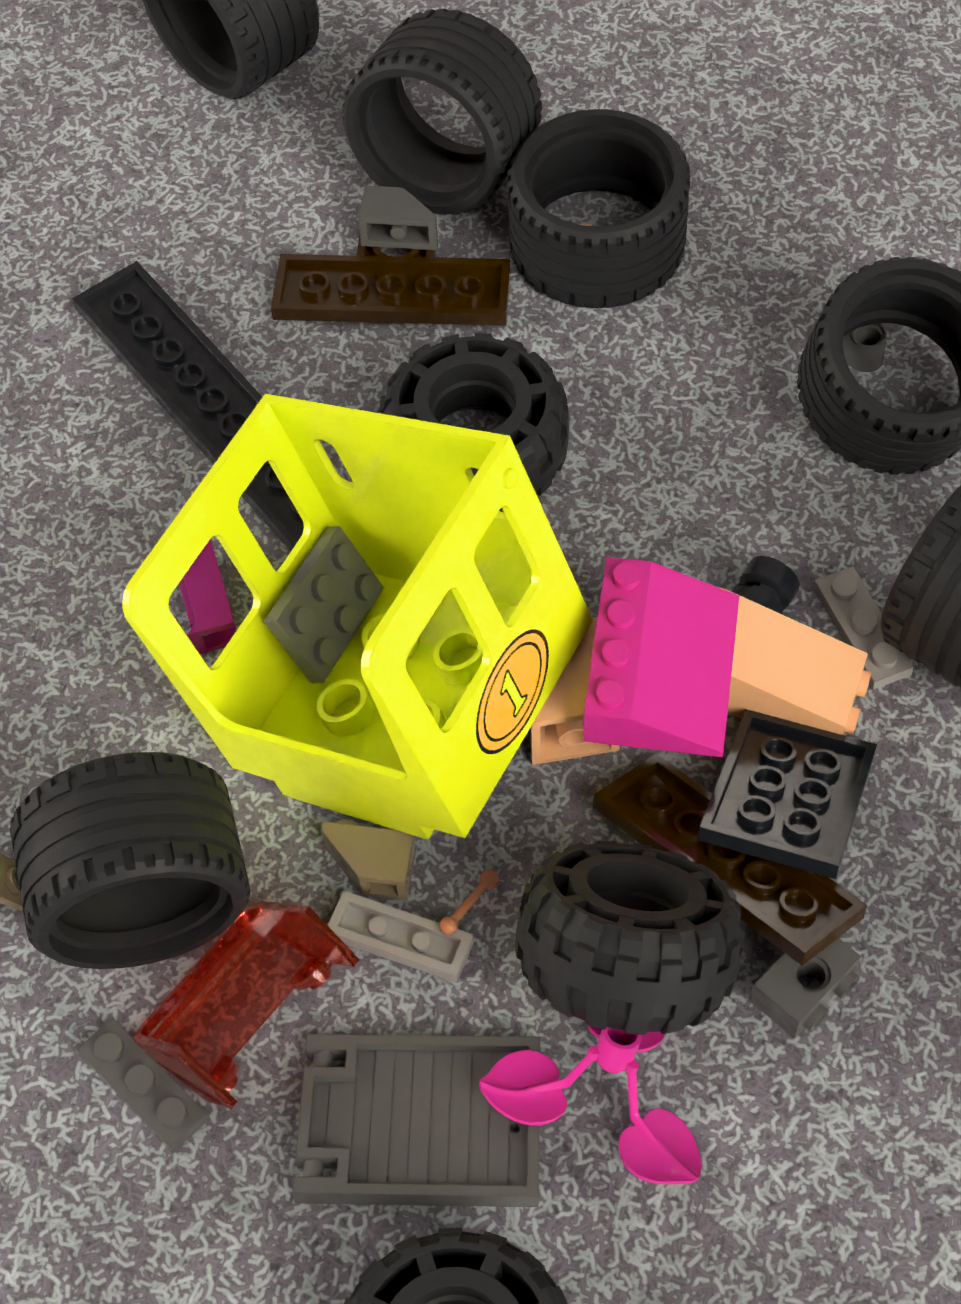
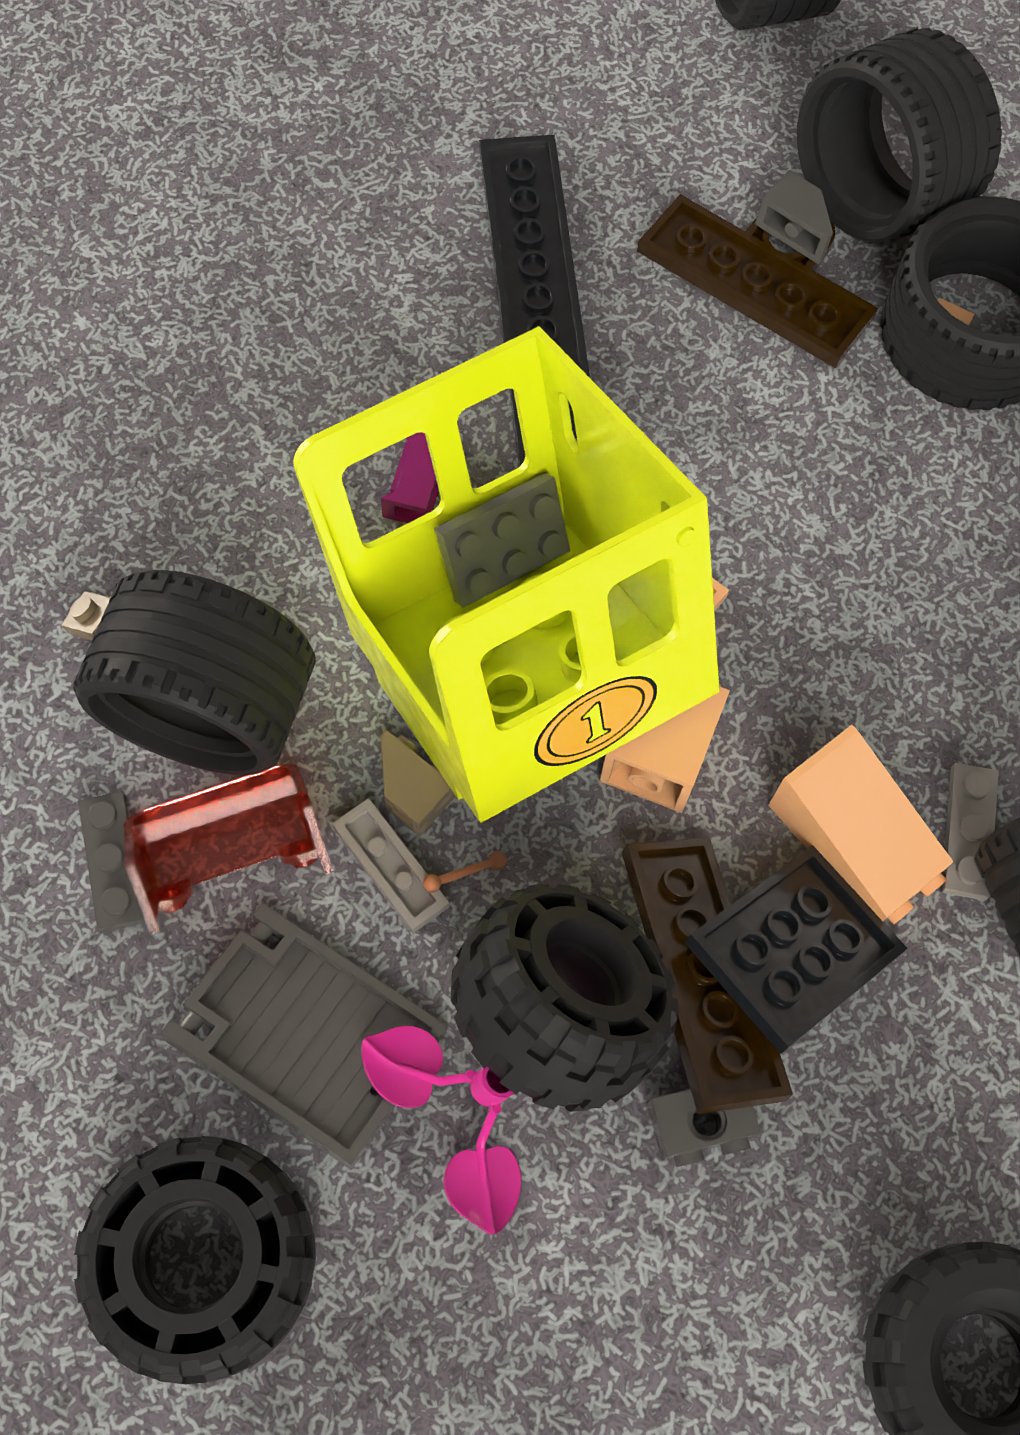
camera: 25 degrees right, 10 degrees up
(494, 377) = (756, 391): black tyre -> none
(660, 660) = (753, 764): dark pink slope -> none
(768, 583) = (903, 745): black wheel -> none

